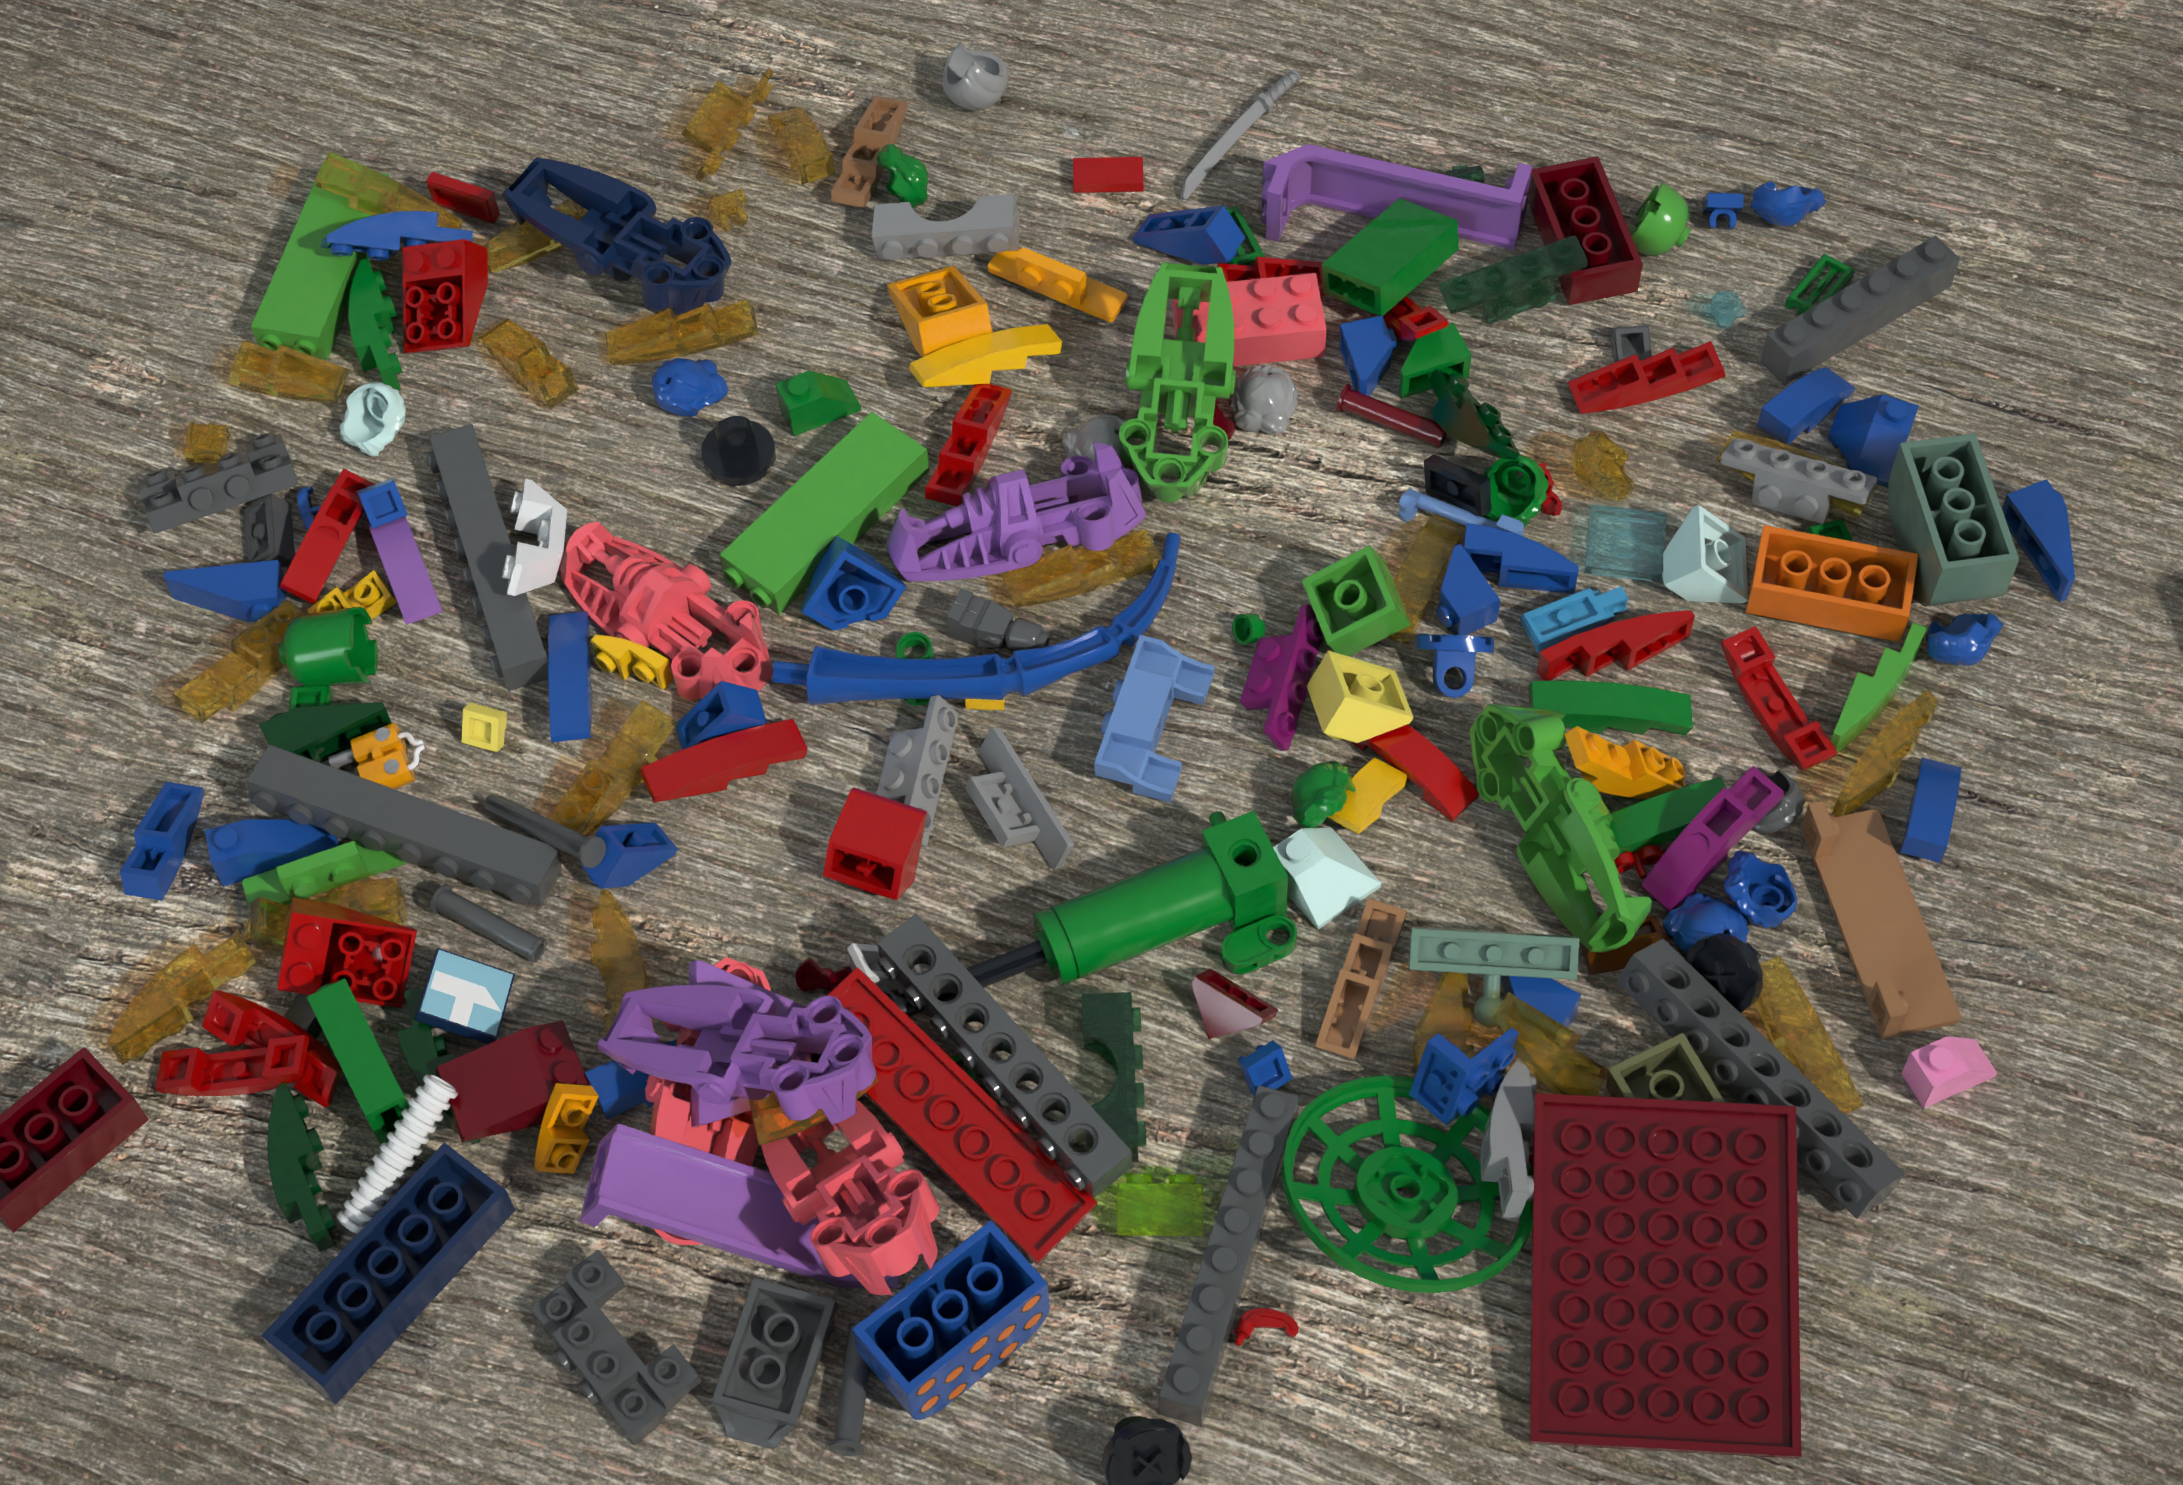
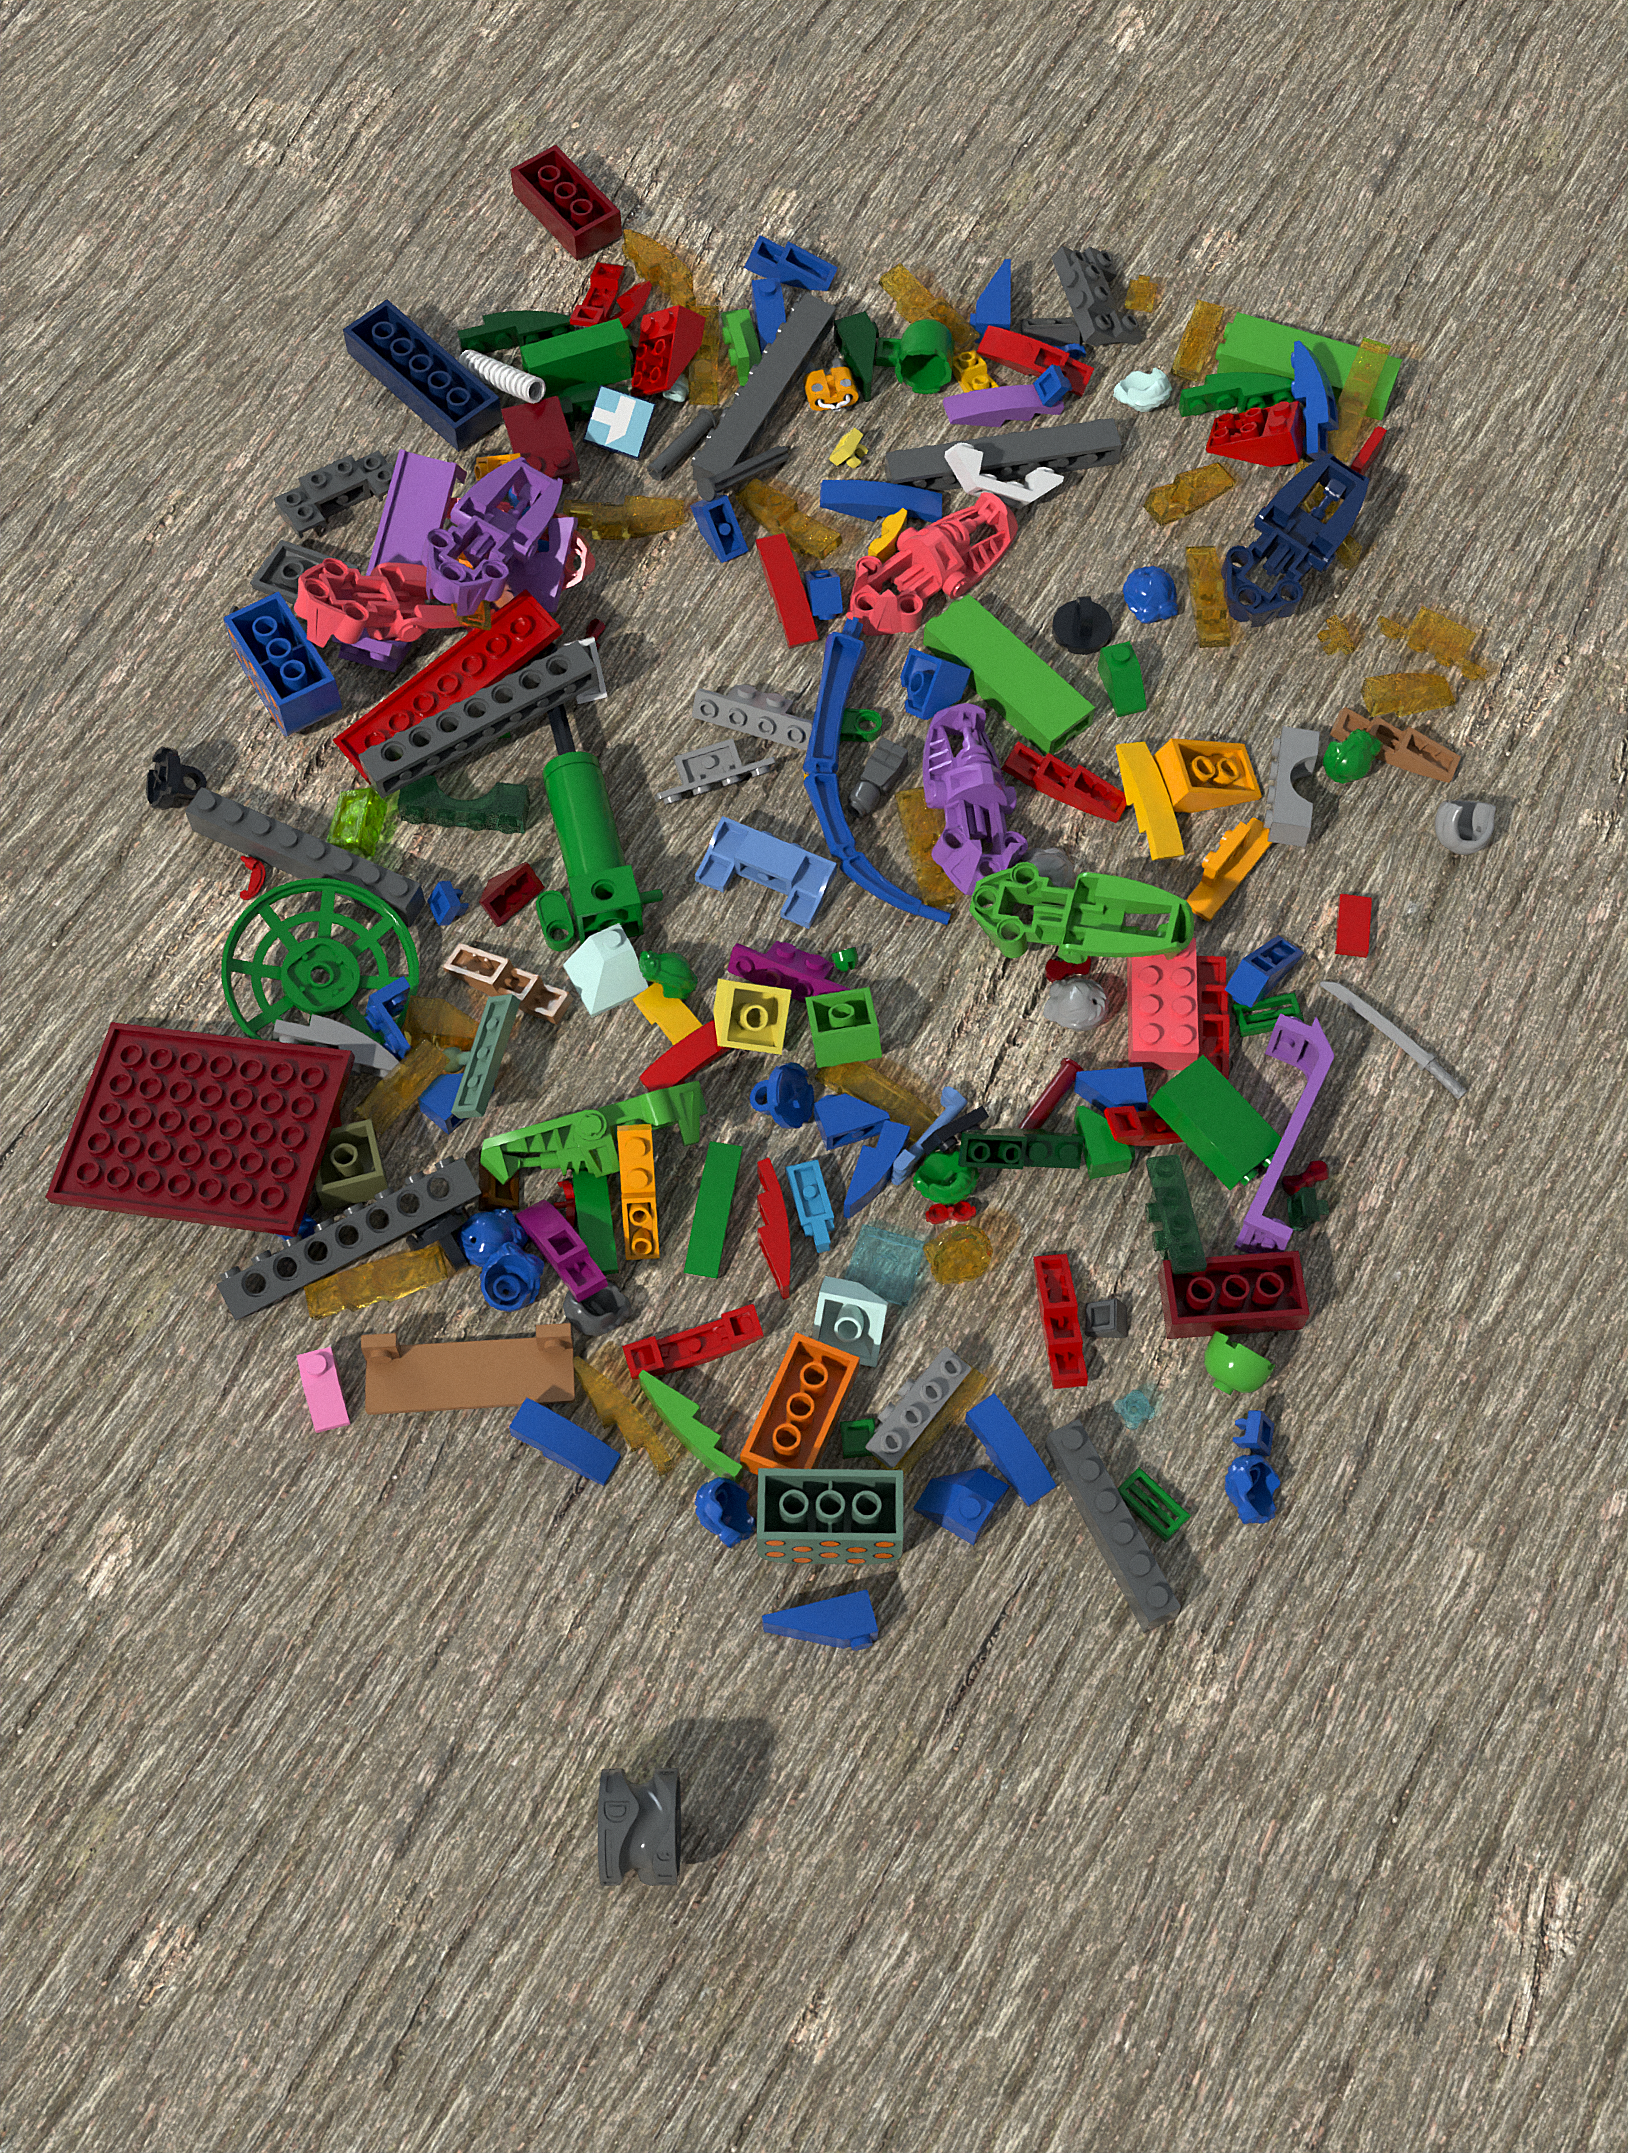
camera: 95 degrees right, 5 degrees up
(875, 844) = (682, 669): red slope -> none

